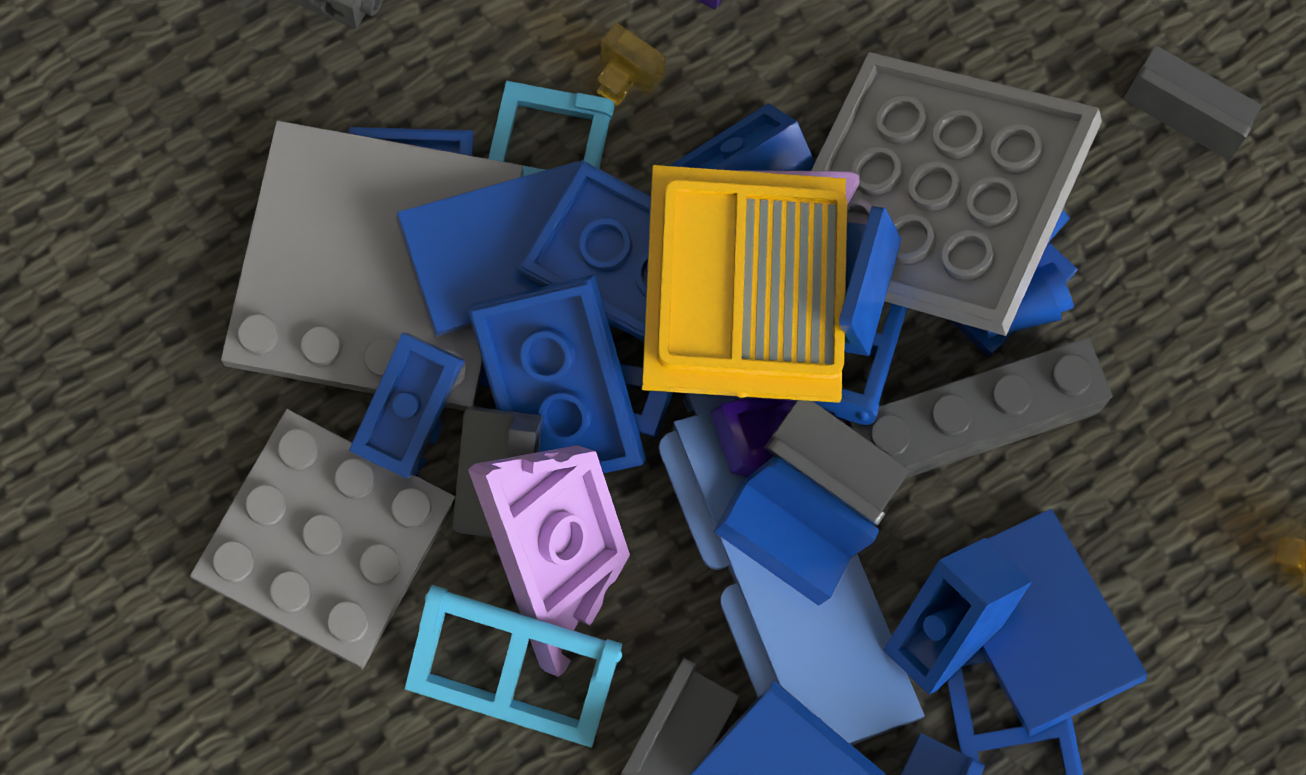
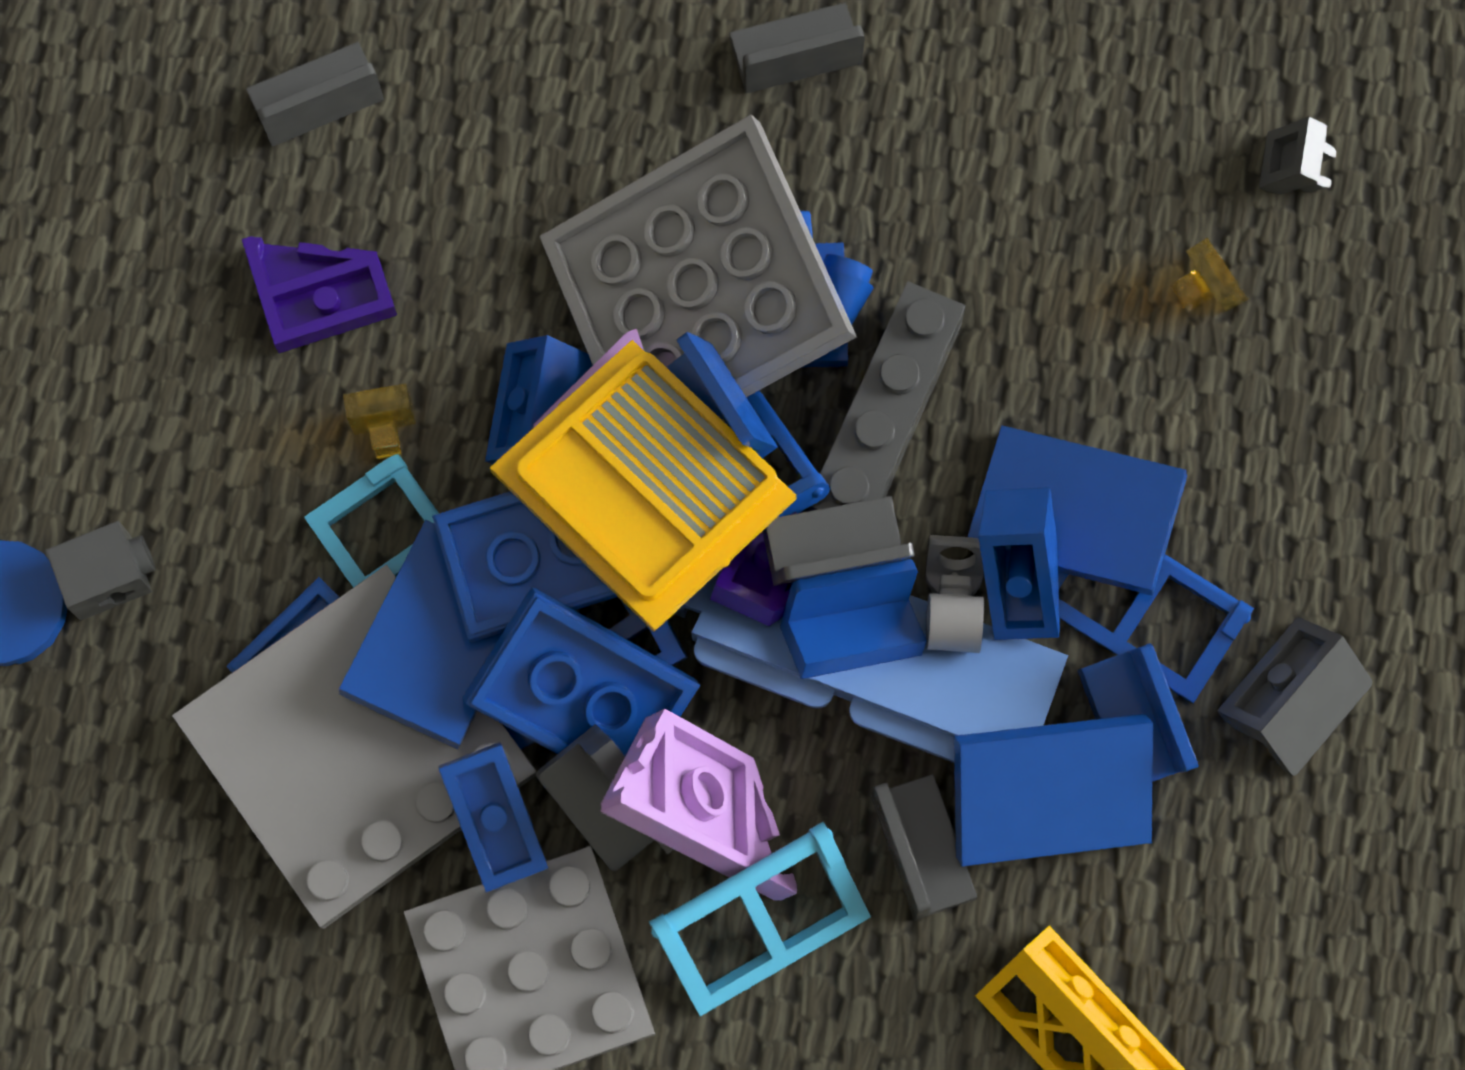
camera: 40 degrees left, 0 degrees up
(873, 602) = (952, 610): none -> light grey leg

